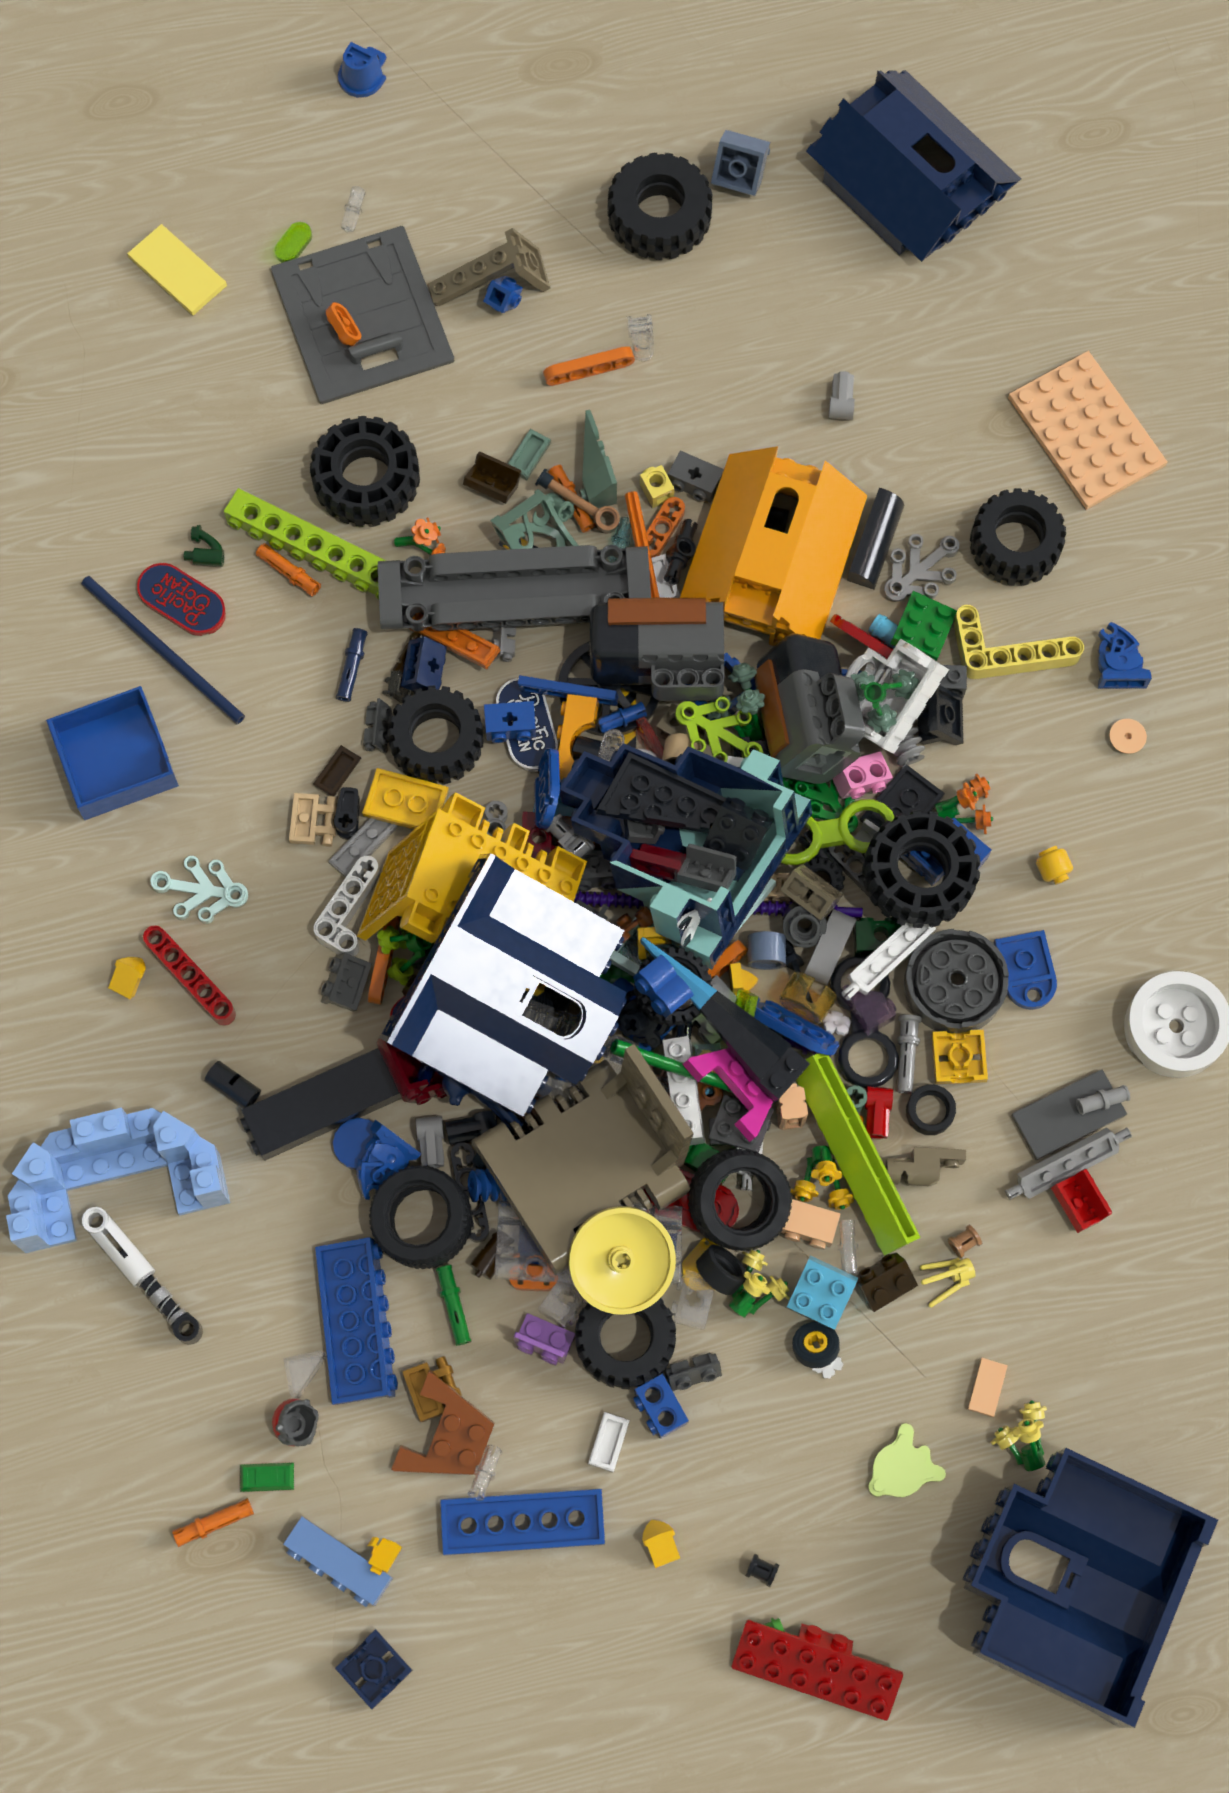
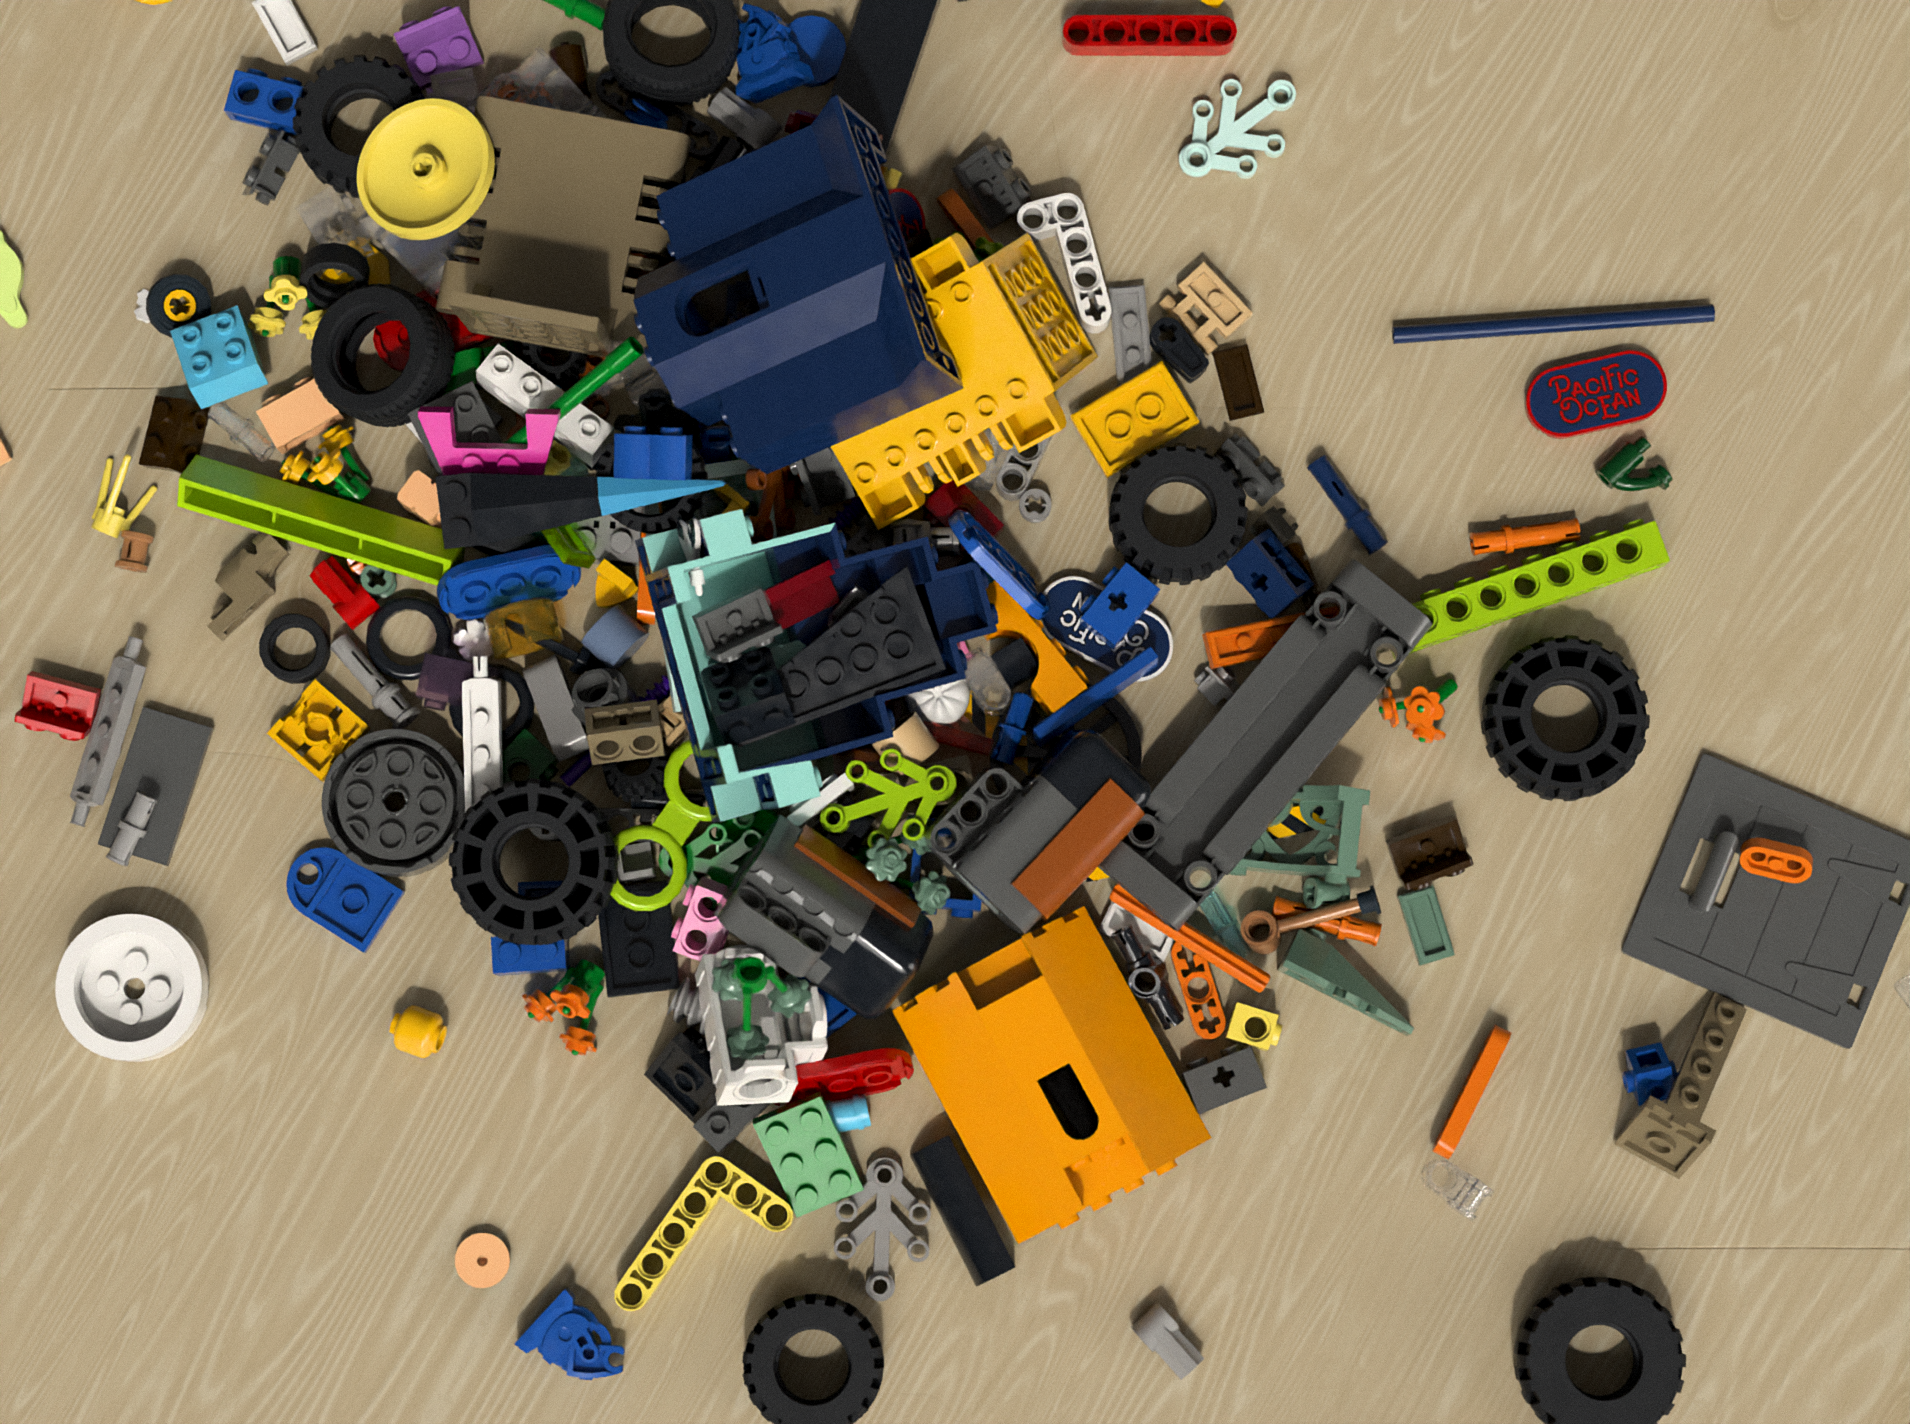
camera: 135 degrees right, 10 degrees up
(112, 753) = (1471, 161): blue piece -> none
(762, 1570) = (16, 63): black bush -> none

